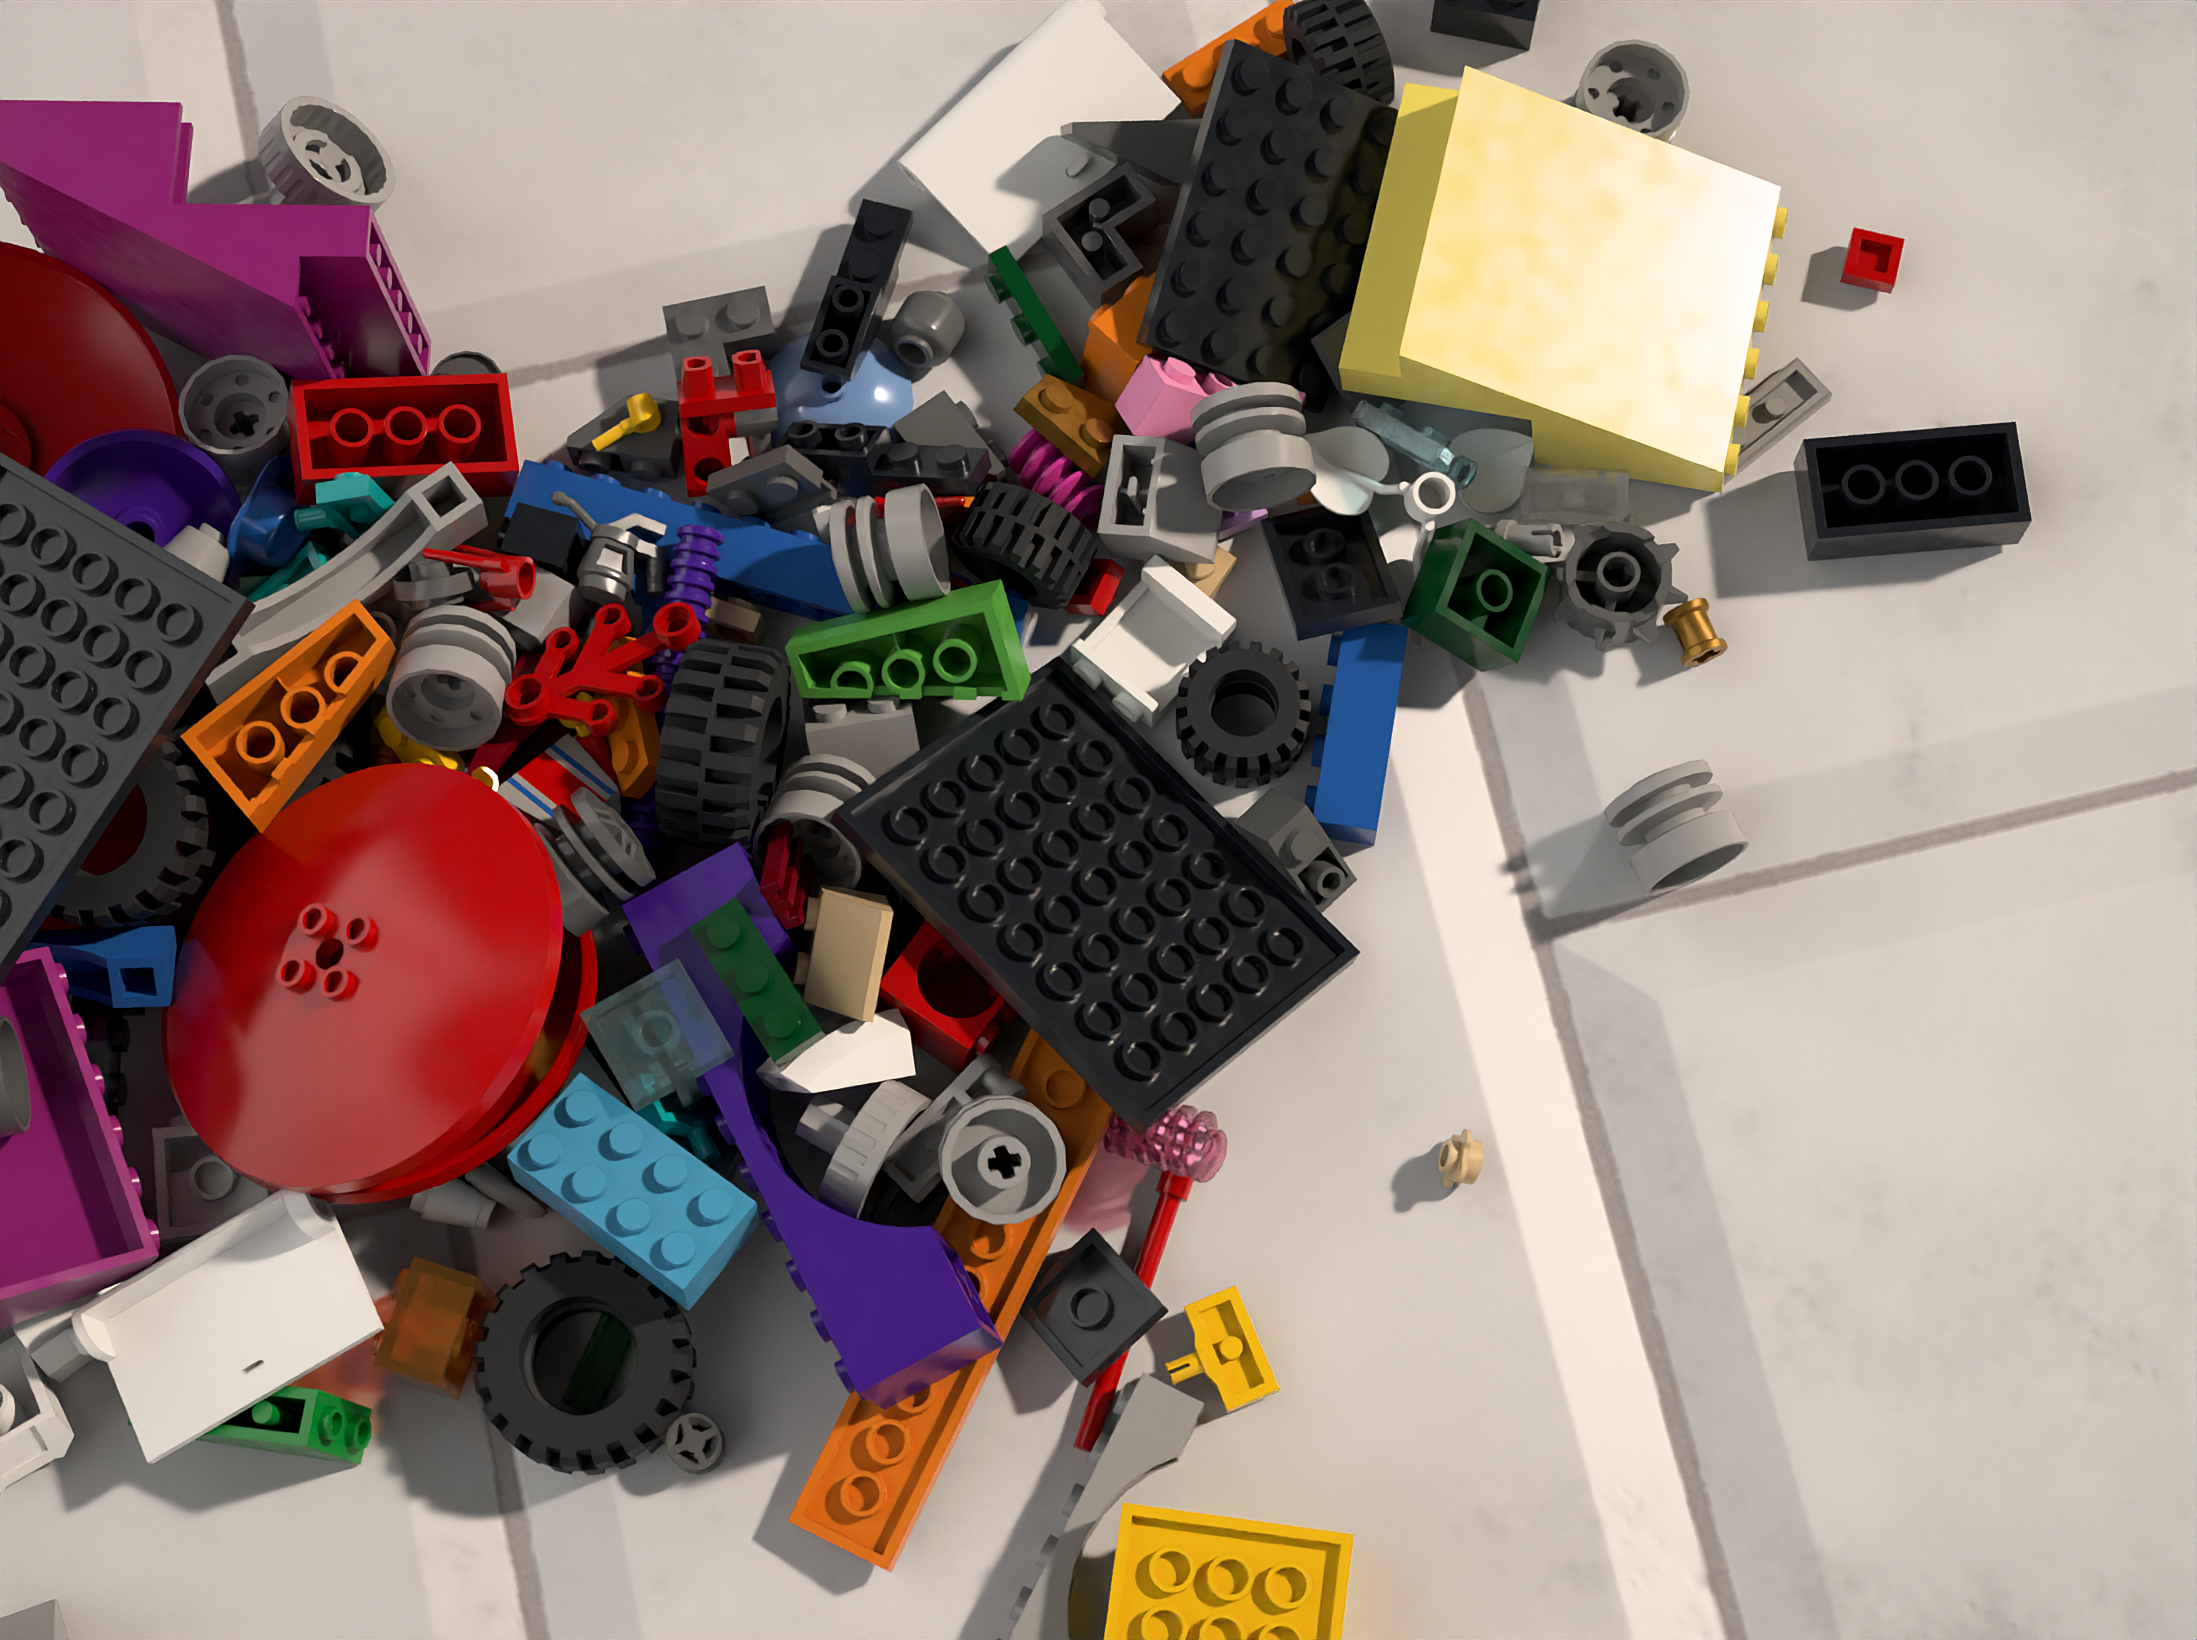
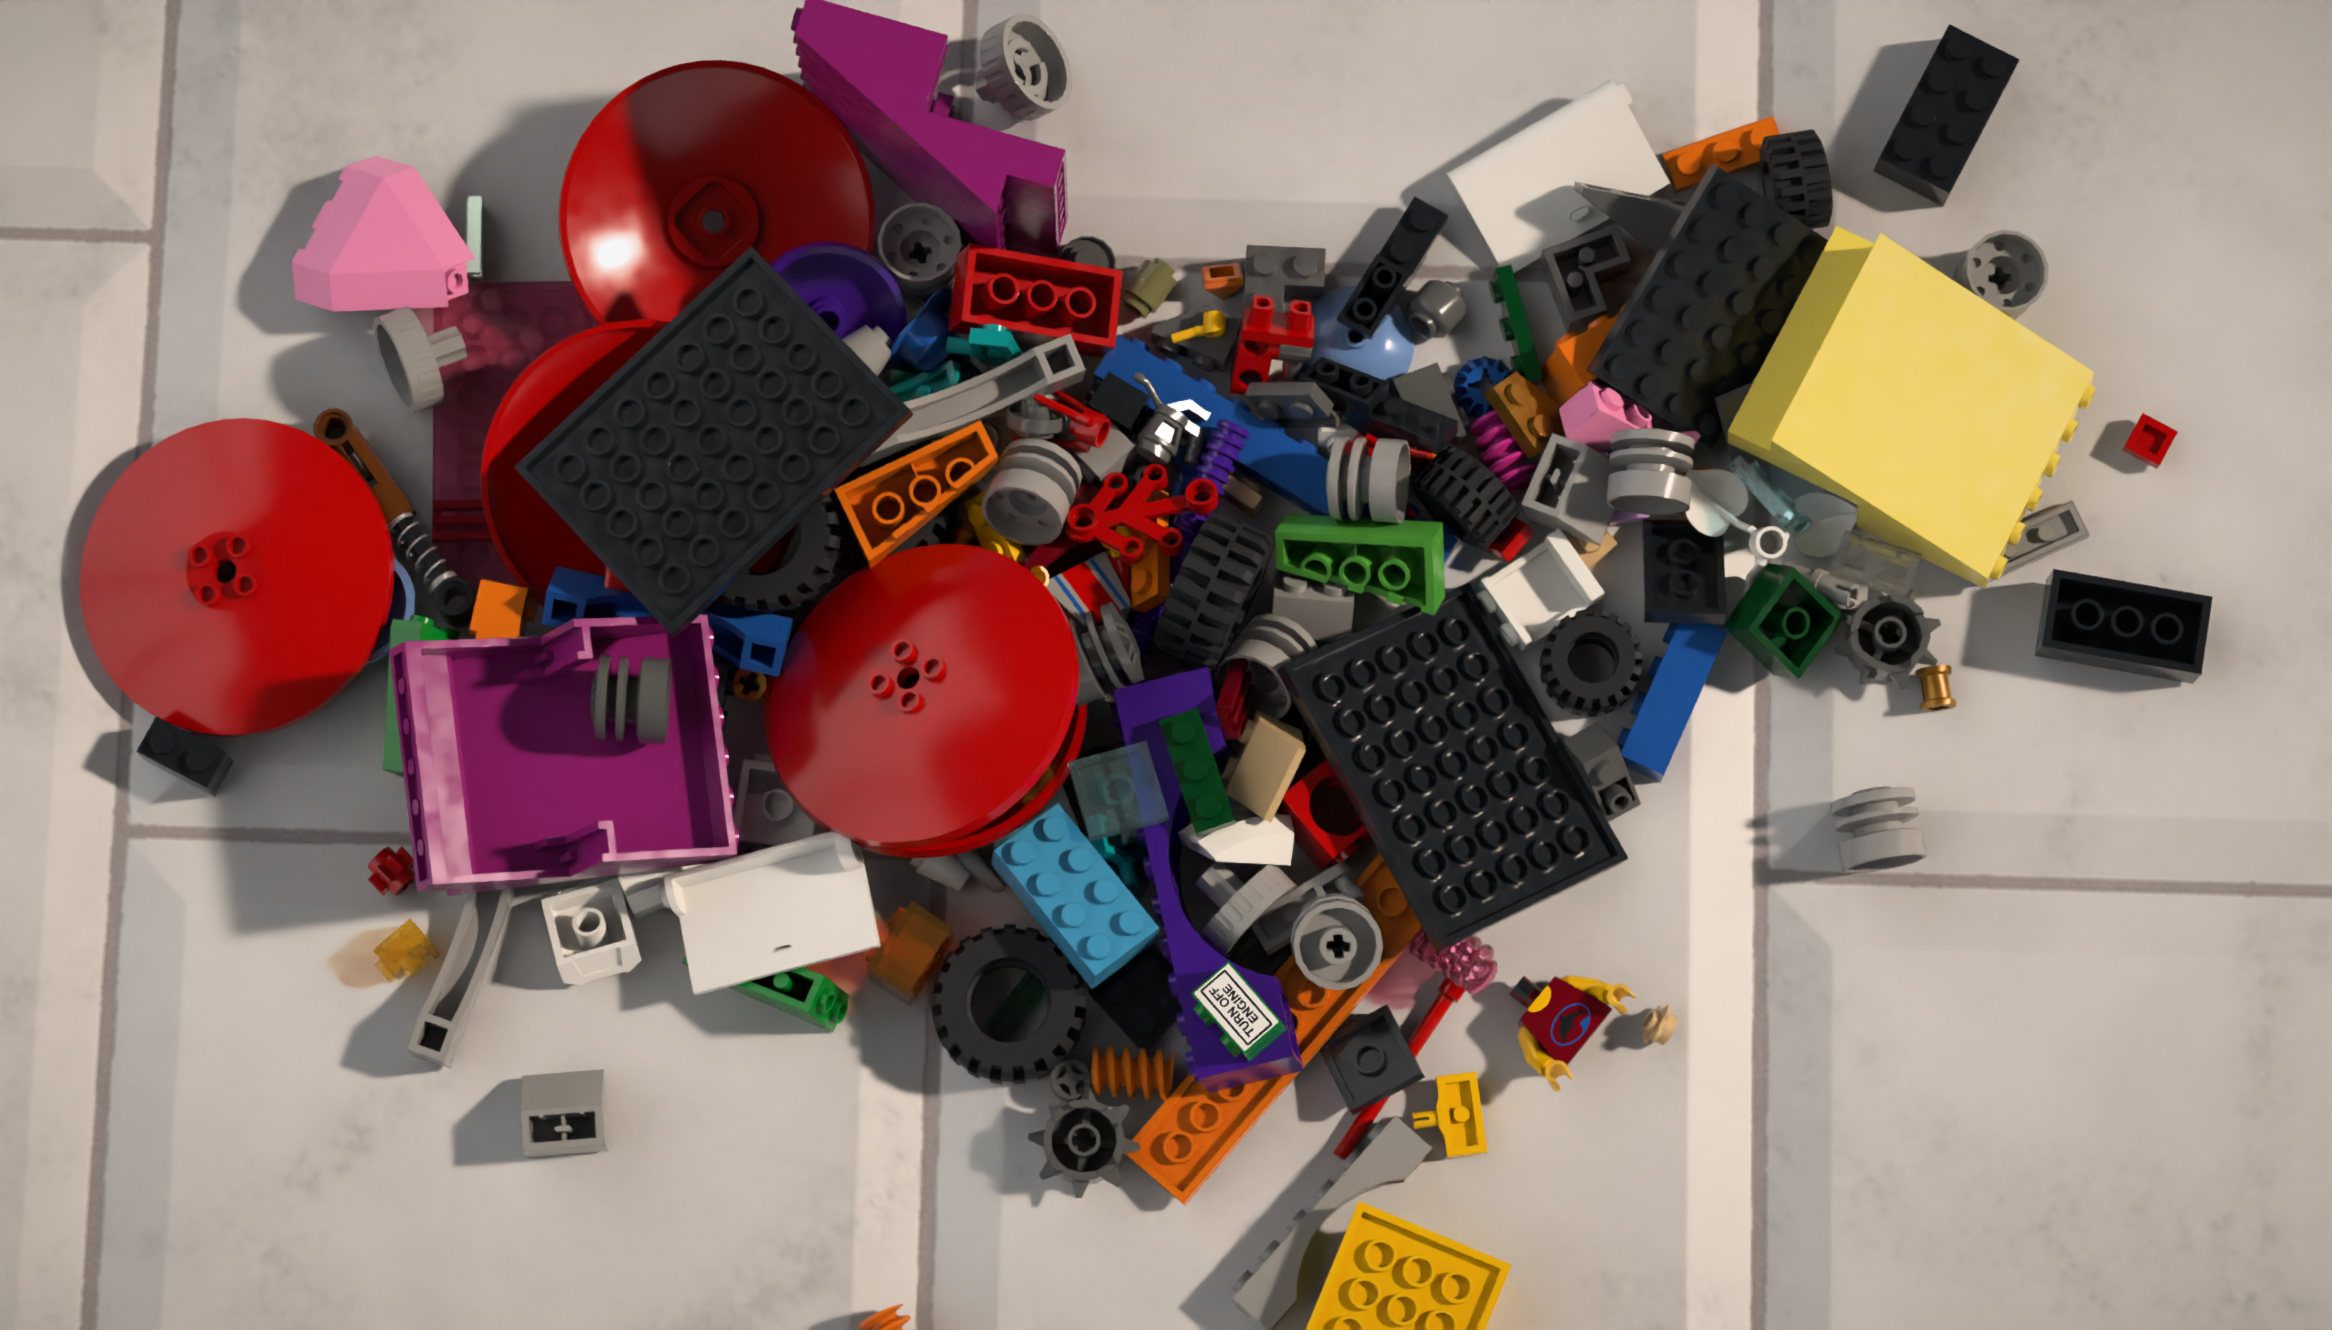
camera: 10 degrees right, 5 degrees up
(141, 1037) = (746, 689): none -> pearl gold bush
(552, 396) = (1148, 287): none -> olive brick
(645, 364) = (1222, 279): none -> orange slope
(706, 1502) = (1067, 1124): none -> dark grey brick
(759, 1307) = (1140, 998): none -> black plate
(775, 1411) = (1132, 1073): none -> orange piece
(888, 1285) = (1238, 1012): none -> brick
(993, 400) = (1470, 375): none -> blue gear
(1332, 1185) = (1562, 1019): none -> torso

